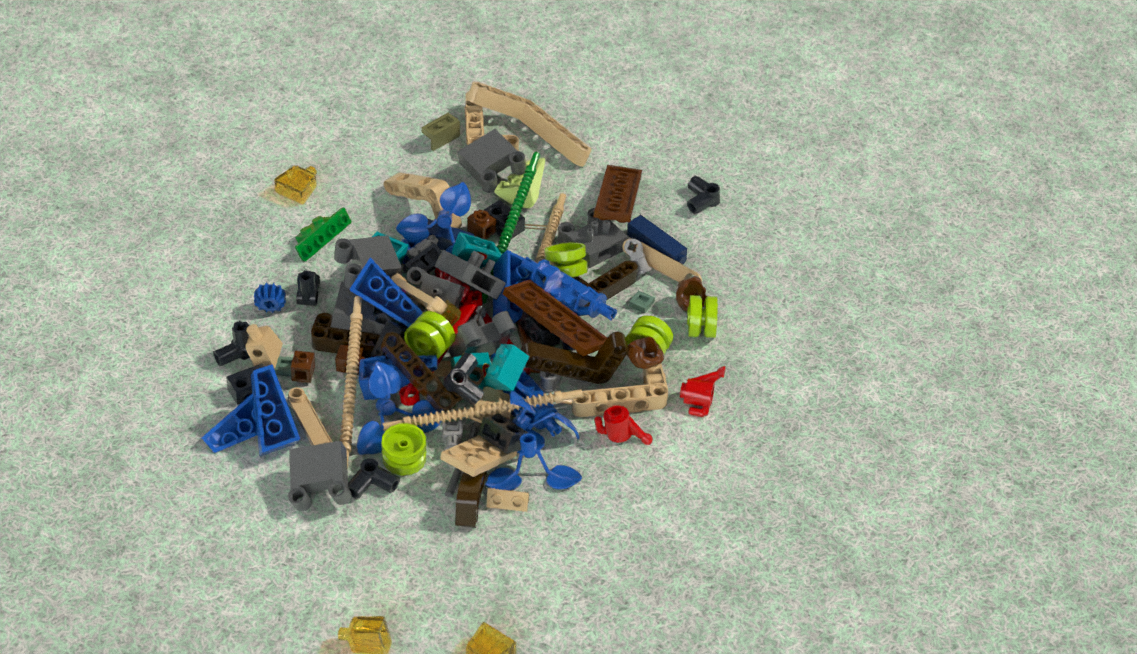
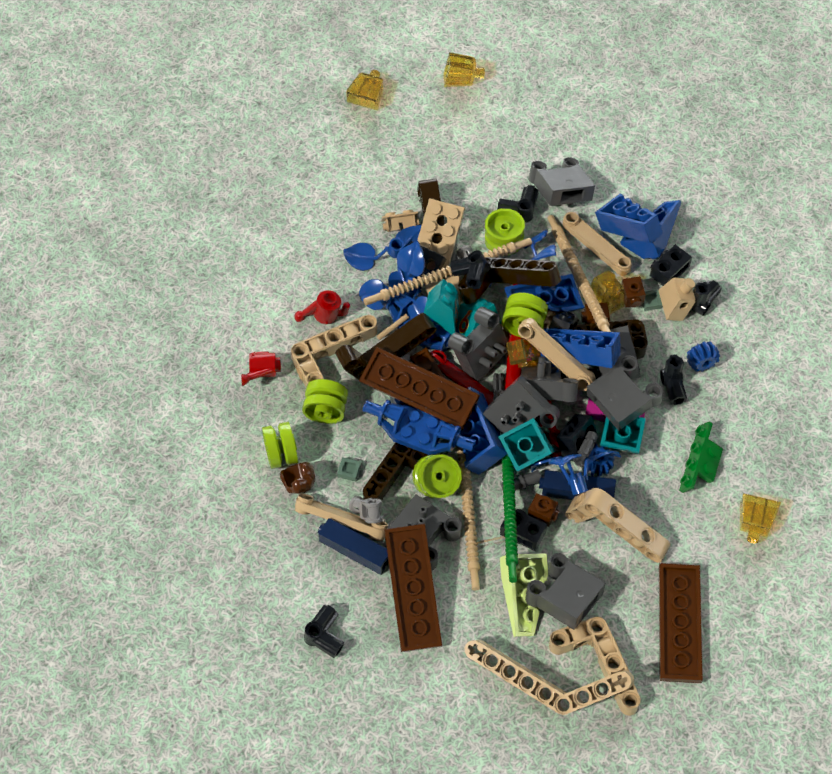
camera: 165 degrees right, 15 degrees up
(326, 364) = (608, 290): none -> clear yellow torso
(403, 138) = (680, 623): none -> reddish brown plate
(442, 130) = (644, 636): olive panel -> none
(645, 353) = (321, 365): reddish brown hair -> none

